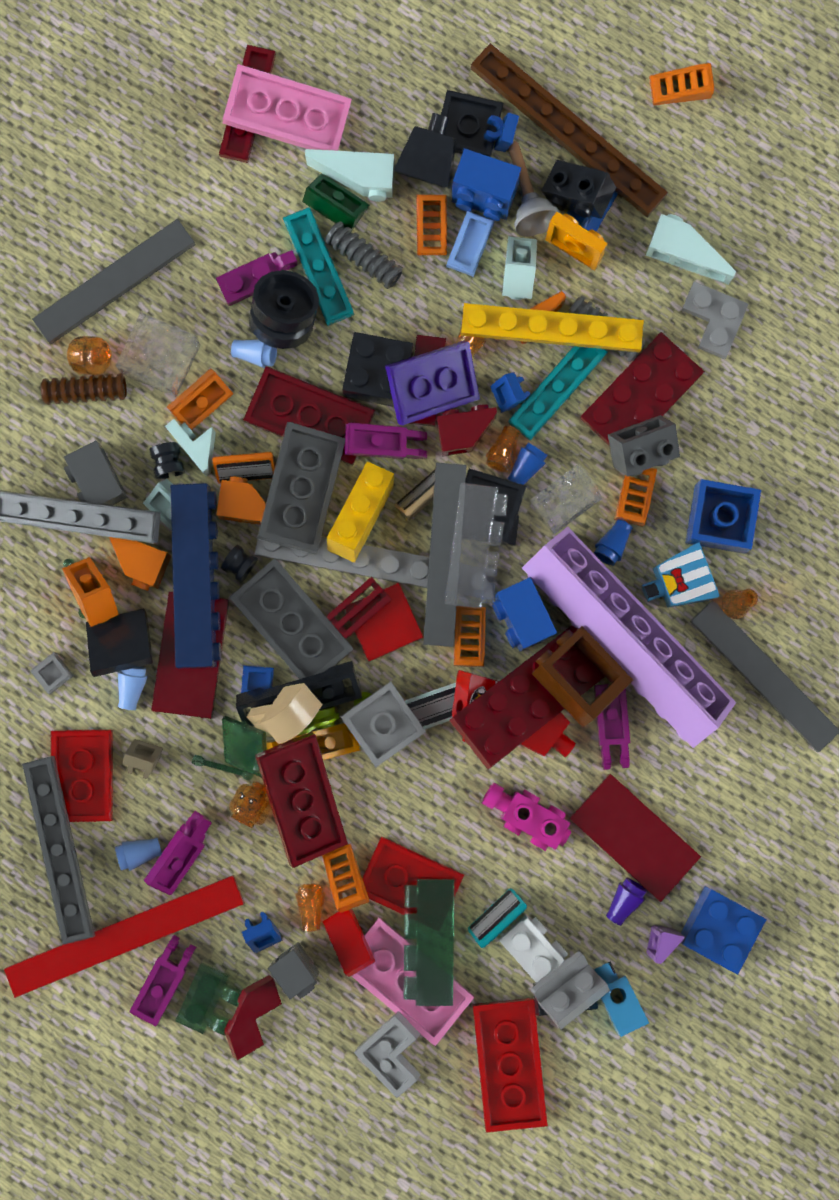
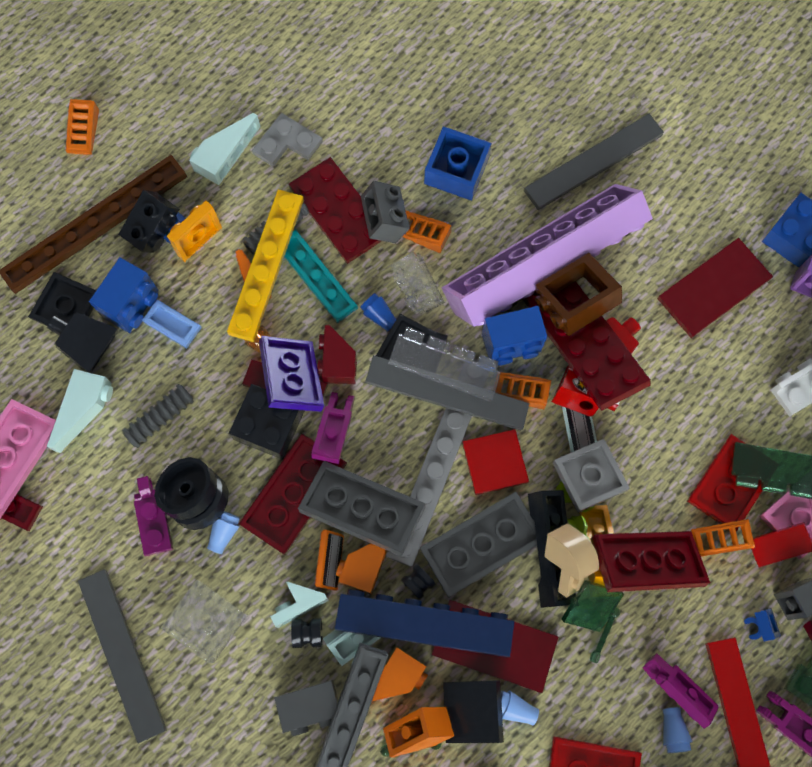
camera: 80 degrees left, 10 degrees down
(83, 389) = (219, 703): reddish brown piece -> none
(89, 355) = (188, 690): clear orange head -> none
(142, 756) = (585, 709): dark tan tile -> none
(200, 399) = (254, 592): orange slope -> none
(250, 804) = (645, 611): clear orange head -> none
(257, 677) = (527, 586): blue tile -> none
(310, 905) = (743, 575): clear orange cone -> none
(318, 265) = (153, 459): teal tile -> none
(334, 201) = (101, 434): dark green slope -> none
(360, 512) = (394, 459): yellow brick -> none
(377, 591) = (491, 477): dark red tile -> none
(417, 498) = (387, 408): slope -> none
(431, 200) = (124, 358): orange slope -> none
(497, 918) = (773, 412): slope -> none
(503, 451) = (363, 330): clear orange cone -> none
(505, 131) = (80, 273): blue tile -> none
(509, 392) = (312, 315): blue tile -> none
(519, 268) = (205, 284): light aqua slope -> none
(535, 212) = (161, 262): light grey piece -> none
(536, 820) = (693, 363): dark pink brick -> none
(613, 543) = (462, 255): blue cone -> none
(613, 728) = (628, 282): magenta hinge -> none
(626, 900) = (768, 302): dark purple cone -> none
(682, 579) = (503, 206): torso -> none
(738, 602) = (531, 165): clear orange cone -> none

